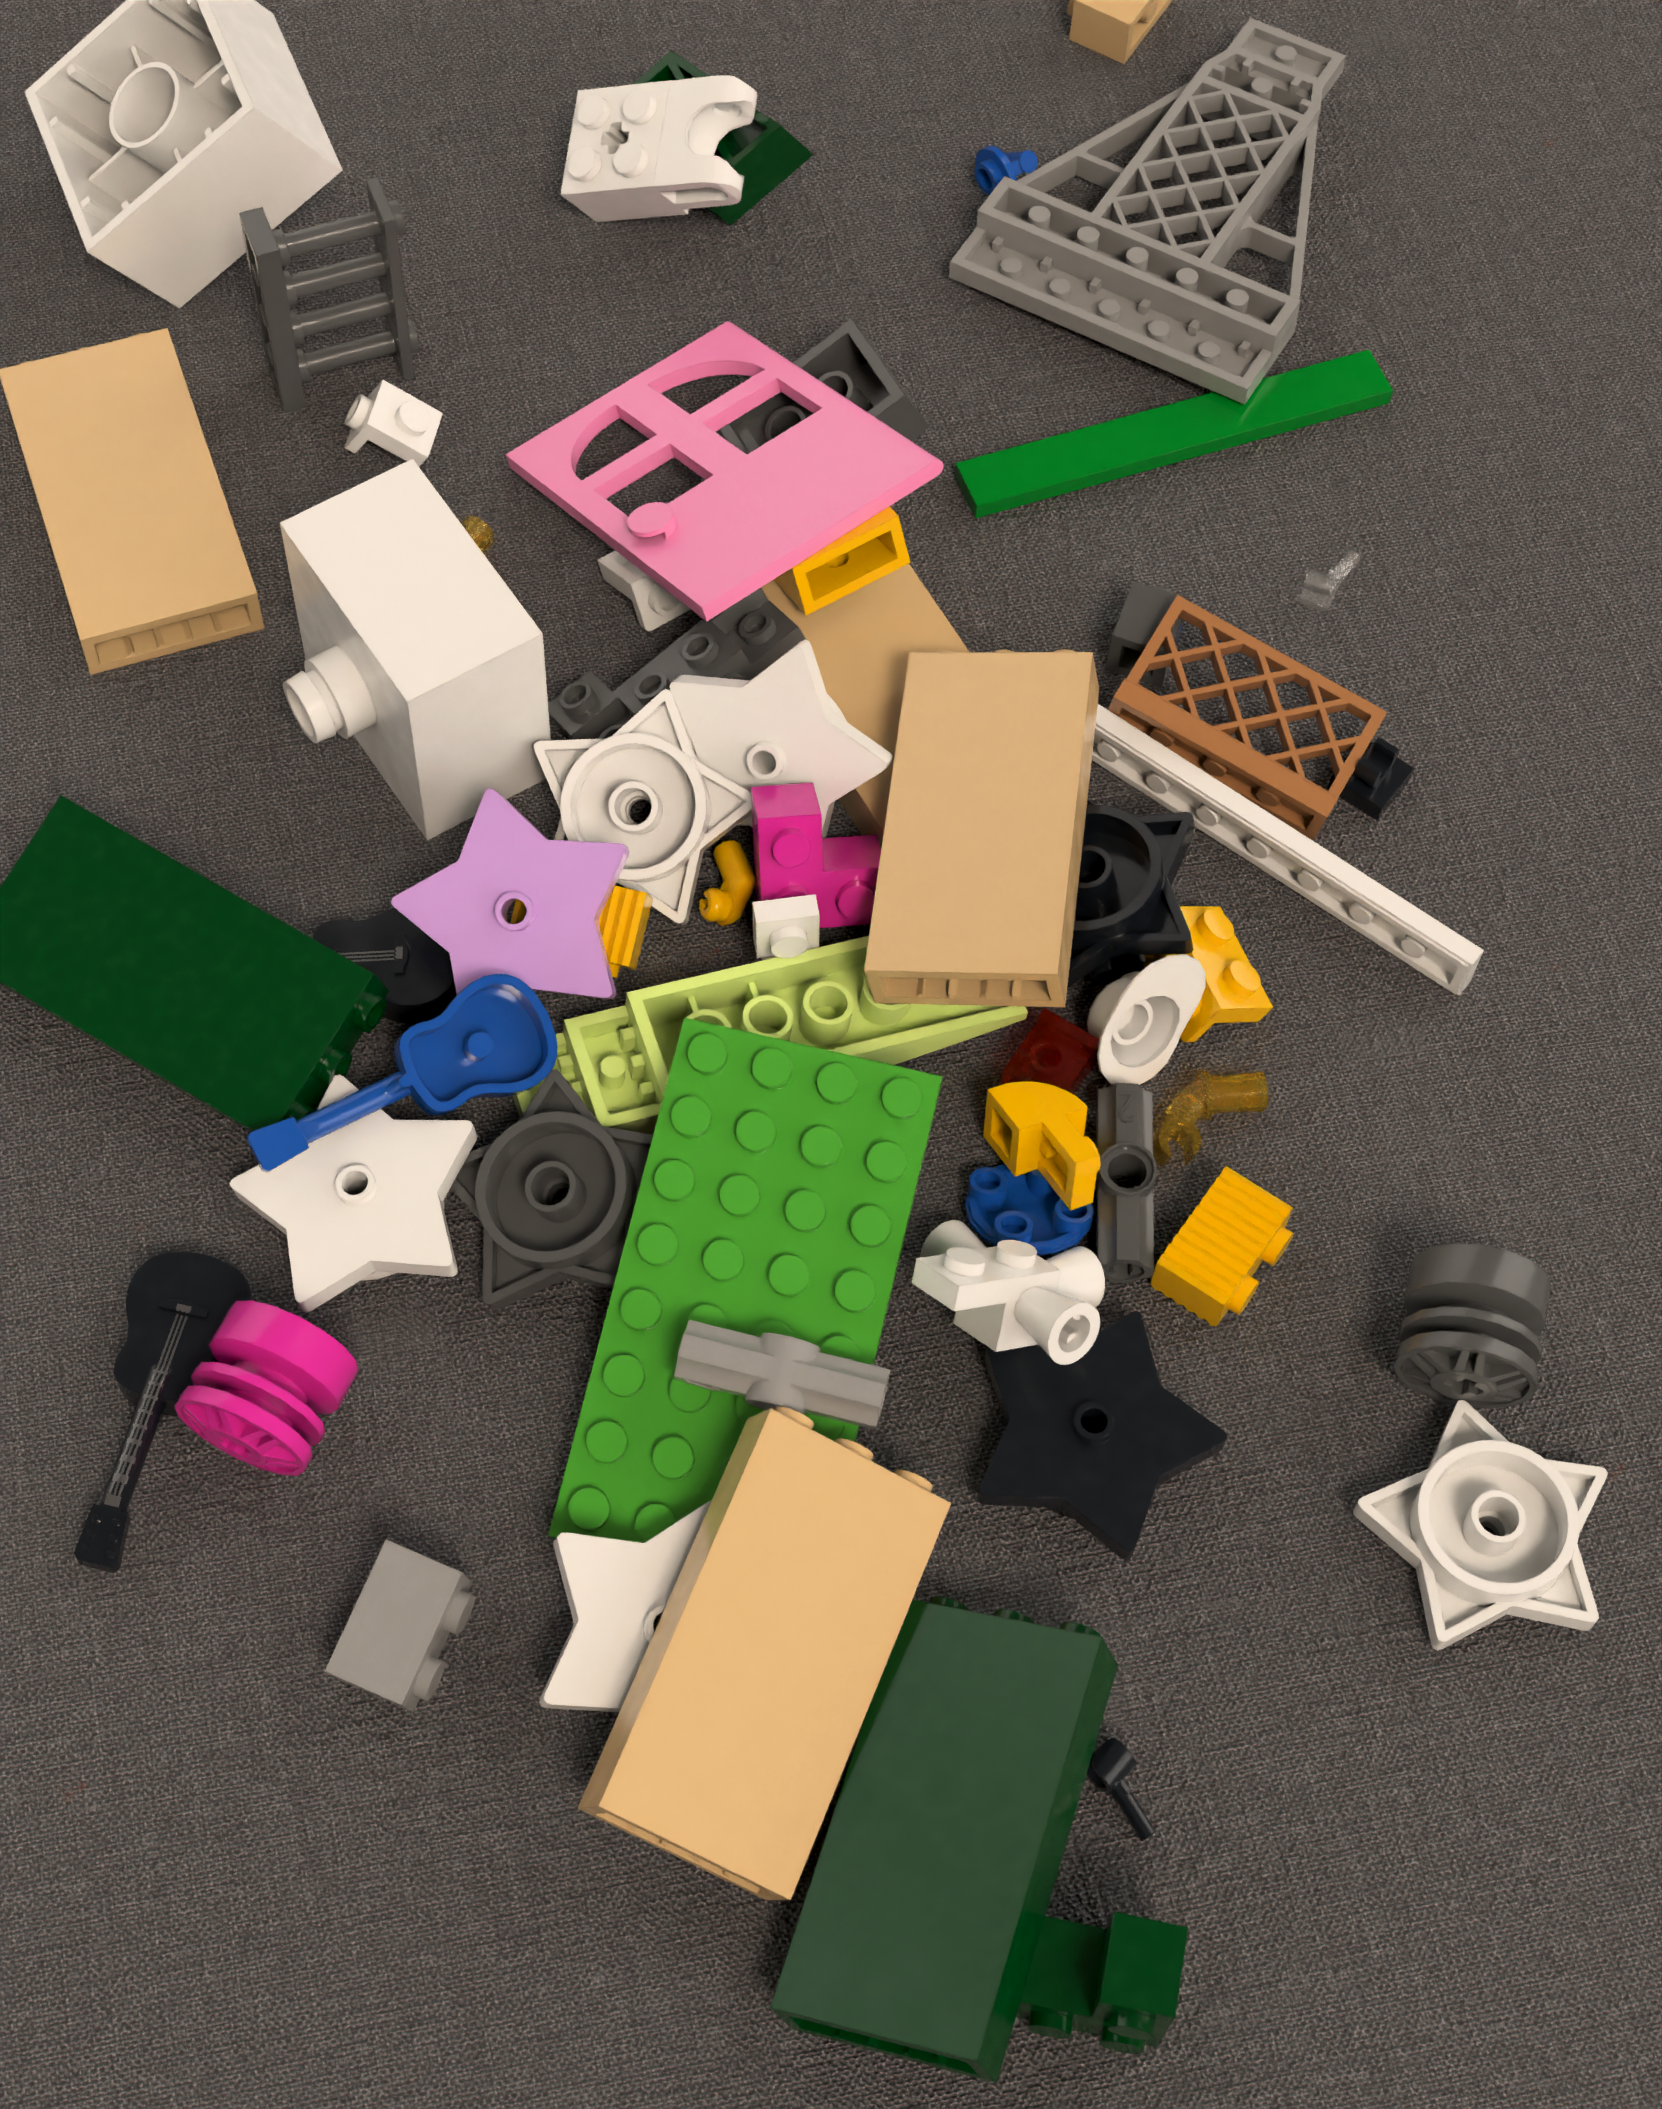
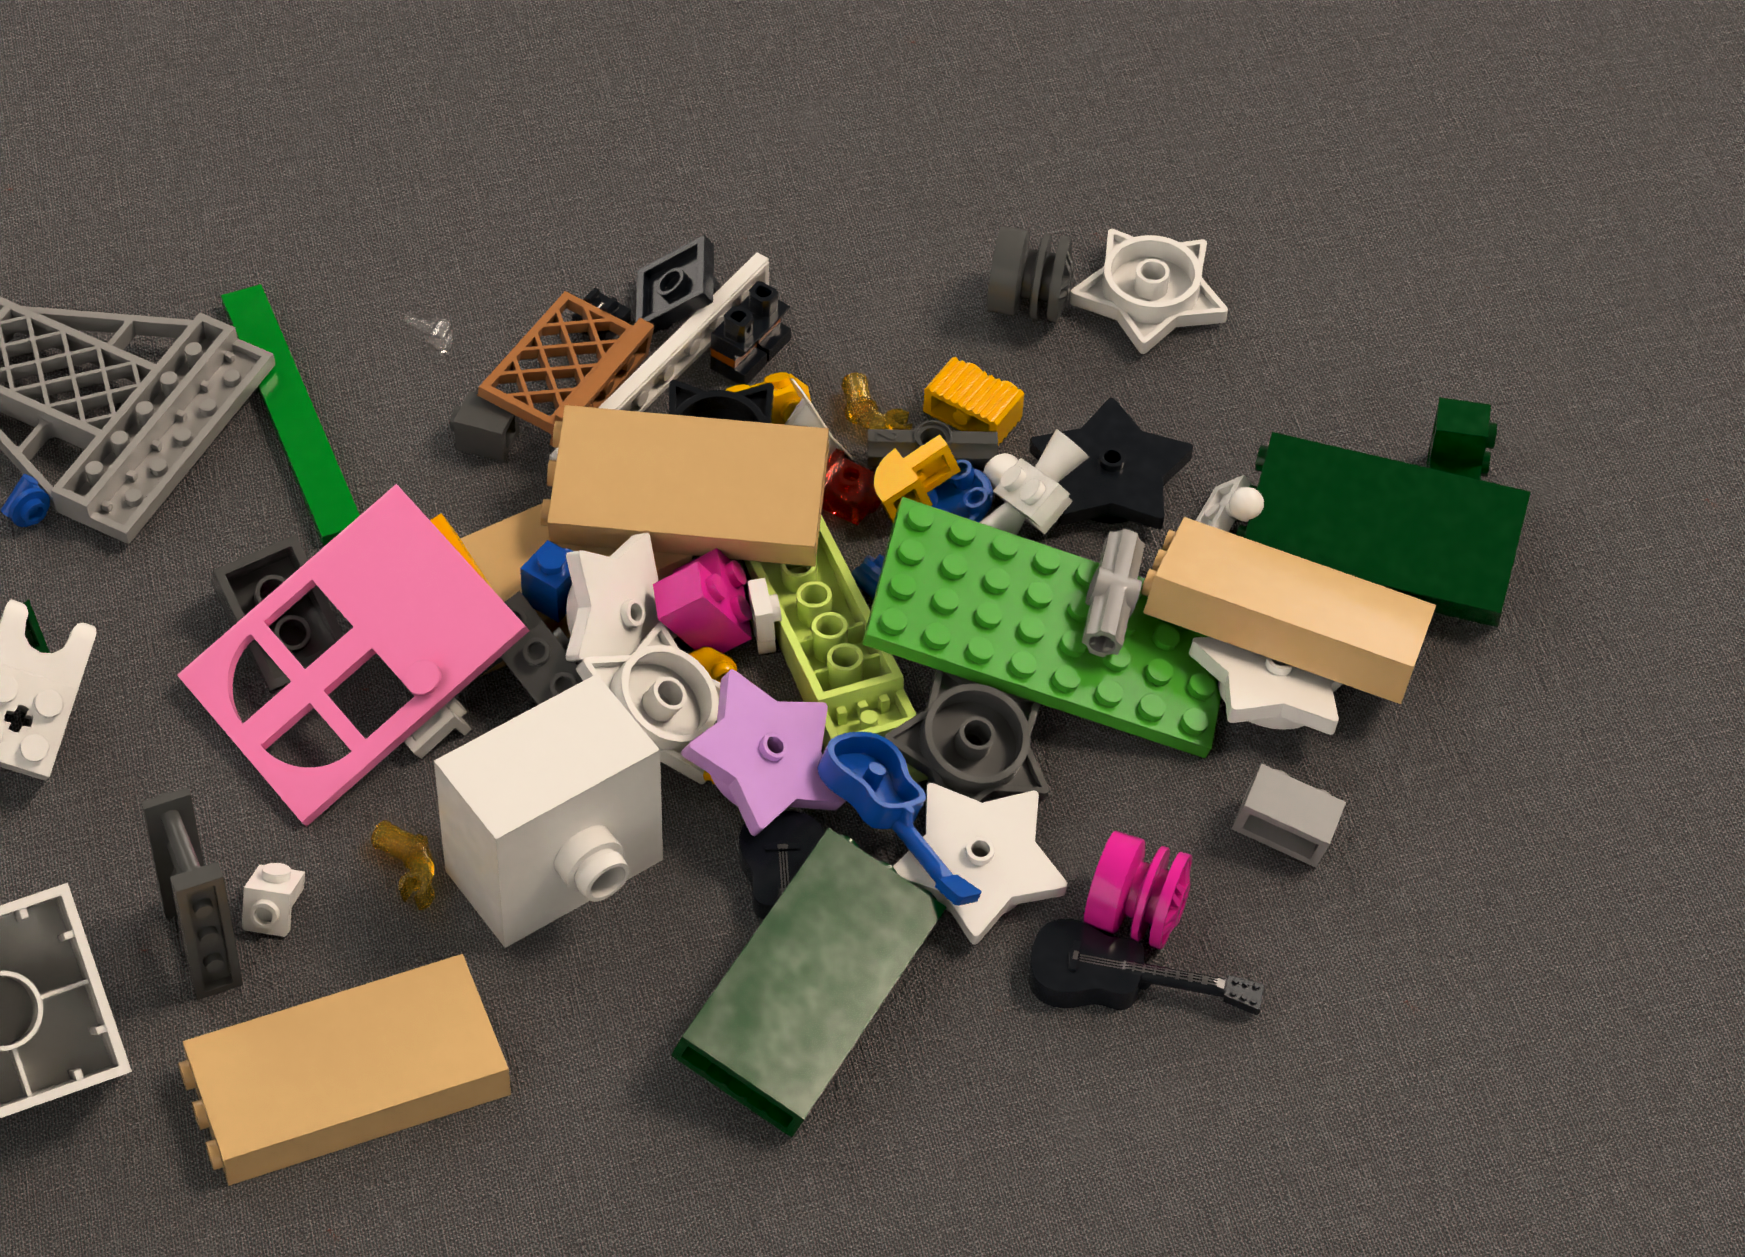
camera: 90 degrees left, 10 degrees down
(839, 660) = (547, 580): none -> blue brick
(992, 1588) = (1231, 502): none -> white plate
(1322, 930) = (750, 335): none -> black hips
(1414, 853) = (676, 284): none -> black hinge

